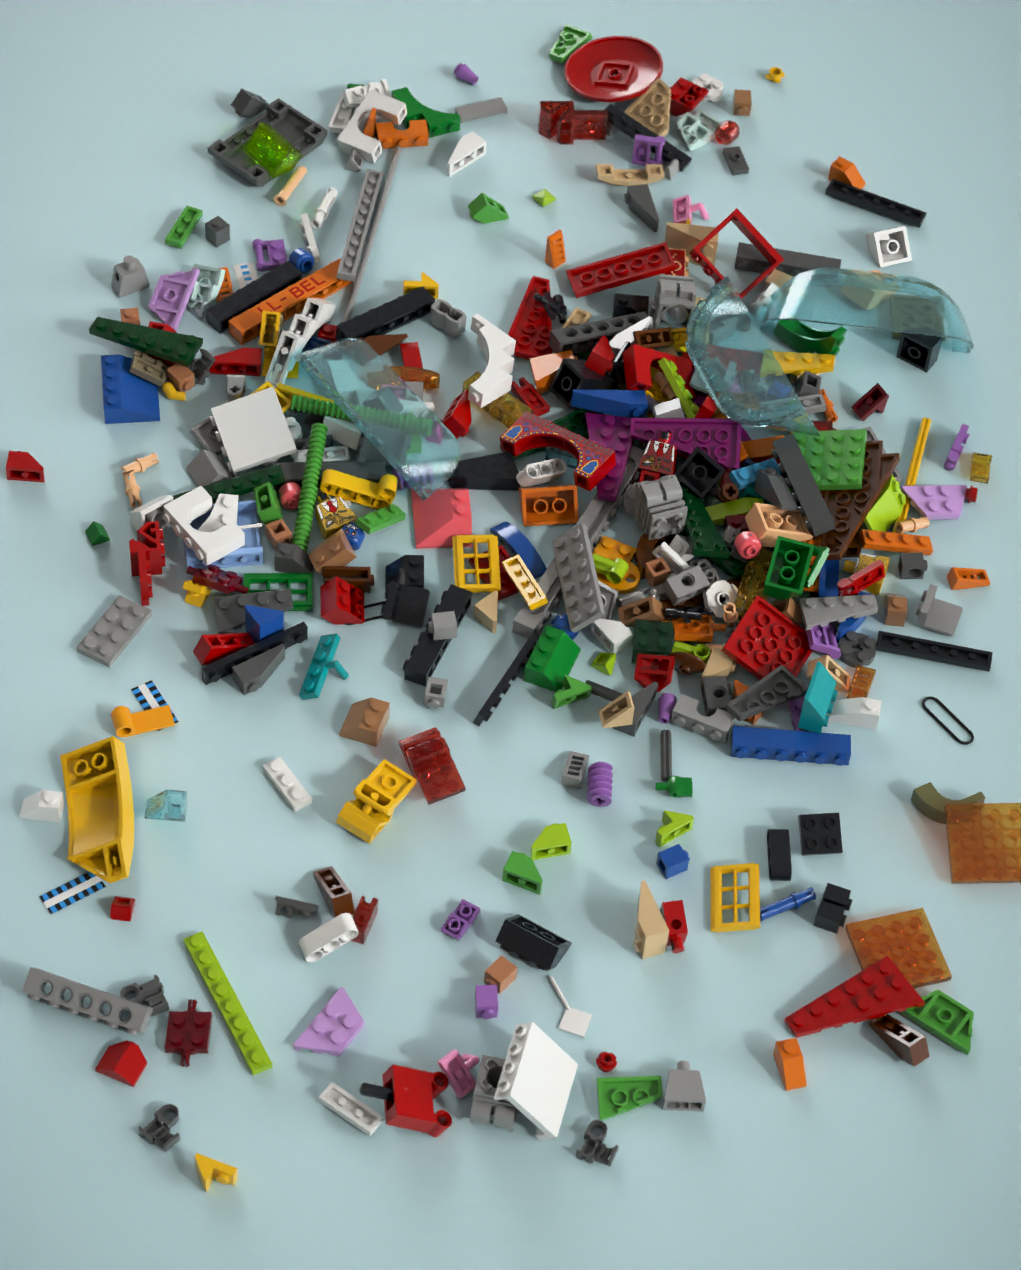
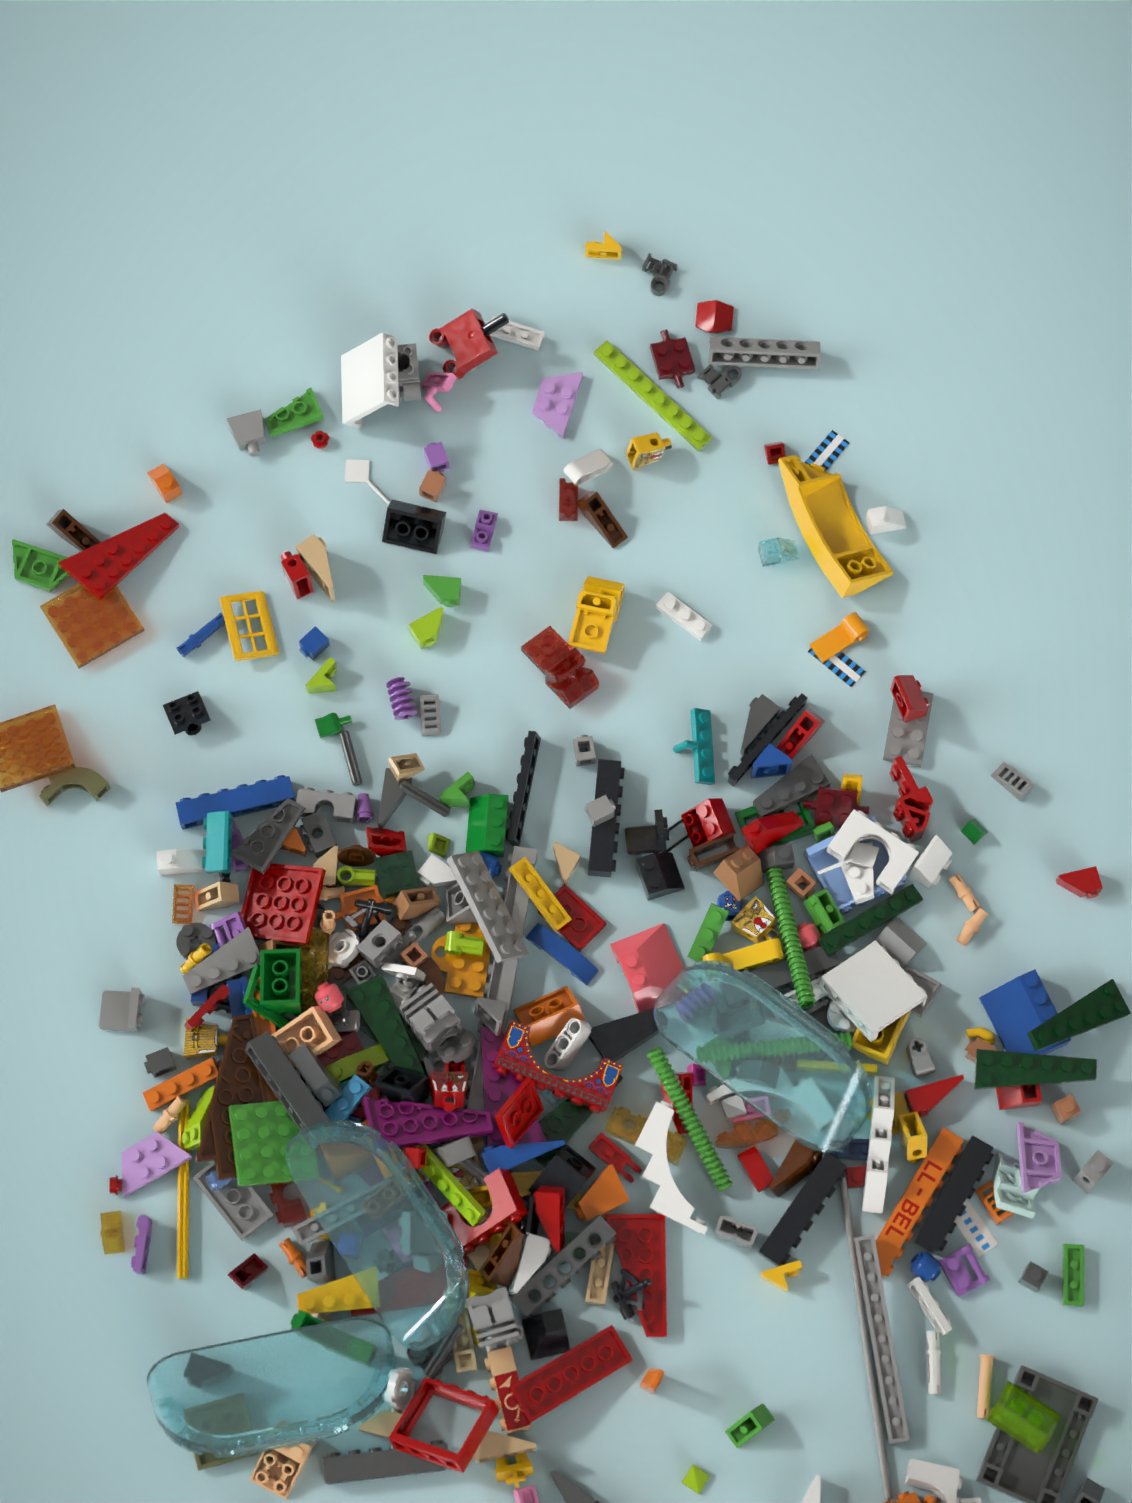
camera: 165 degrees right, 20 degrees up
(36, 549) = (1019, 794): none -> light grey slope
(67, 373) = (1086, 1014): none -> dark green wing
(104, 634) = (909, 697): none -> red slope
(148, 368) = (1015, 1041): dark tan plate -> none
(201, 366) = (964, 1069): dark grey piece -> none
(238, 566) = (823, 832): none -> bright green plate
(258, 938) = (646, 449): none -> yellow torso
(286, 574) = (770, 829): none -> red slope
(290, 904) = (628, 495): dark grey plate -> none
(355, 161) = (928, 1453): light grey slope -> none
(366, 721) = (638, 699): medium nougat slope -> none
(457, 388) = (689, 1118): none -> bright green piece
(492, 555) = (613, 907): yellow piece -> none
(597, 1148) = (308, 363): dark grey piece -> none
(601, 498) = (491, 1013): none -> light grey slope
(605, 417) = (519, 1112): none -> red tile
(779, 855) = (220, 682): black beam -> none
(832, 908) = (159, 640): black piece -> none
(861, 626) = (196, 957): none -> yellow pin
(895, 609) = (167, 1005): medium nougat slope -> none
(934, 651) = (118, 963): black plate -> none
(938, 701) = (94, 882): black piece -> none
(961, 578) = (97, 1065): orange slope -> none

